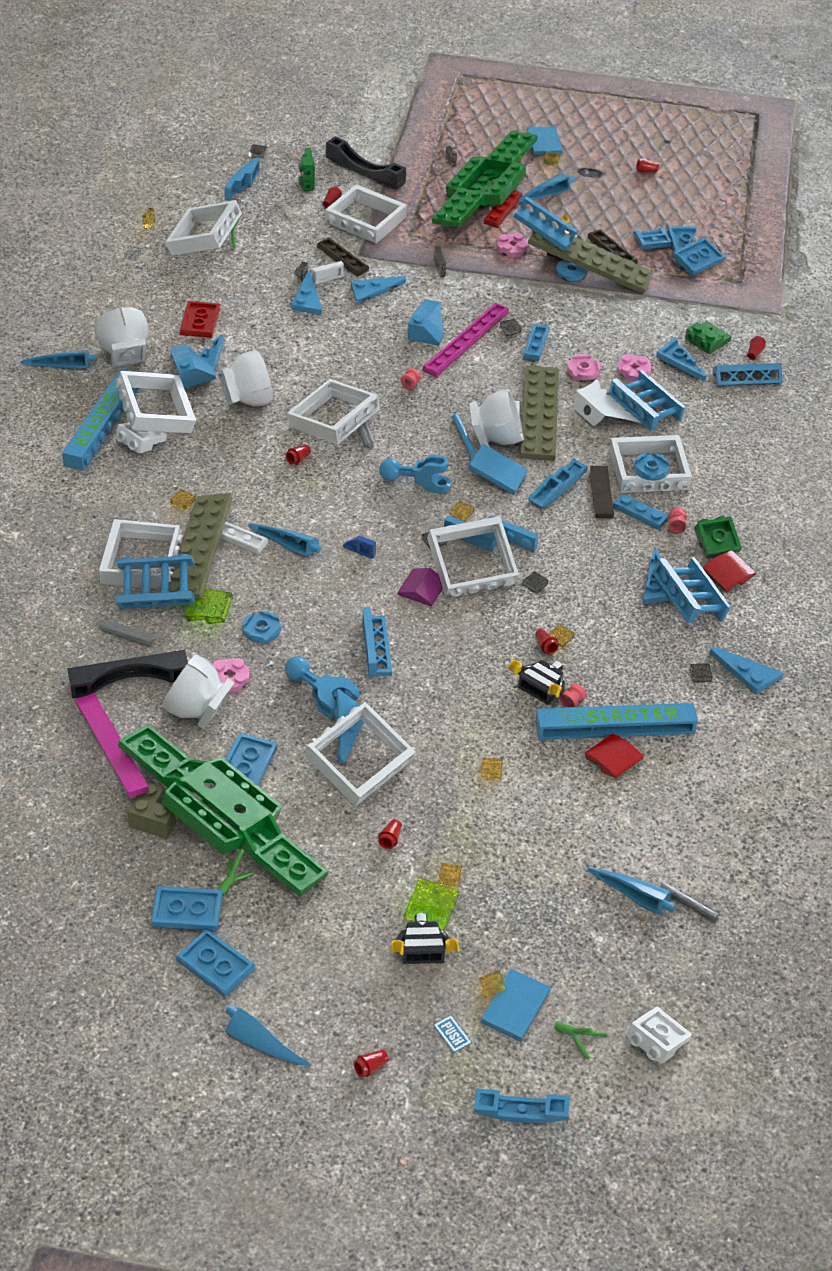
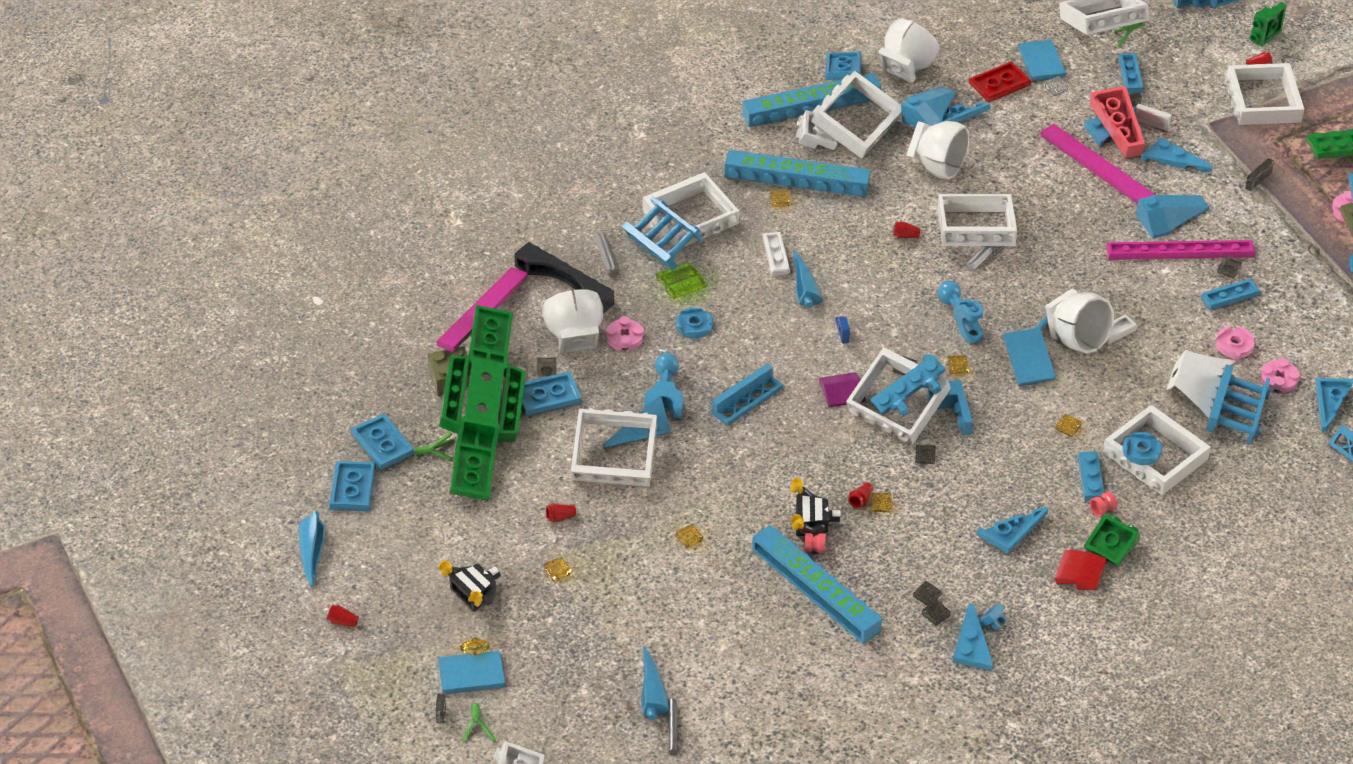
camera: 55 degrees right, 0 degrees up
(68, 359) = (854, 39): dark azure piece -> none
(89, 380) = (841, 64): none -> dark azure tile
(169, 473) = (797, 173): none -> dark azure brick
(202, 540) = (739, 235): olive plate -> none
(204, 287) = (1041, 60): none -> dark azure tile
(218, 744) = (546, 366): none -> clear smoke plate
(271, 256) = (1130, 72): none -> dark azure plate
(319, 284) = (1119, 119): none -> coral wedge
(338, 254) = (1190, 115): dark brown tile -> none
(342, 153) = (1327, 36): black arch -> none
(342, 325) = (1095, 163): none -> dark pink tile
(410, 378) = (1079, 243): coral wheel -> none
(433, 900) = (518, 573): clear neon green slope -> none
(452, 1033) = (414, 651): sticker -> none
(478, 555) = (896, 394): none -> dark azure hinge
(521, 1109) = (378, 720): dark azure slope -> none
(540, 413) = (1141, 346): olive plate -> none
(544, 1051) = (440, 709): none -> clear smoke tile
(558, 484) = (1057, 405): dark azure slope -> none
(579, 492) = (1068, 425): none -> clear yellow tile
(601, 492) = (1085, 438): dark brown tile -> none
(614, 755) = (778, 602): red slope -> none
(677, 666) = (927, 593): none -> clear smoke tile
(684, 599) = (1001, 550): dark azure fence -> none
(735, 642) = (992, 615): none -> dark azure tile

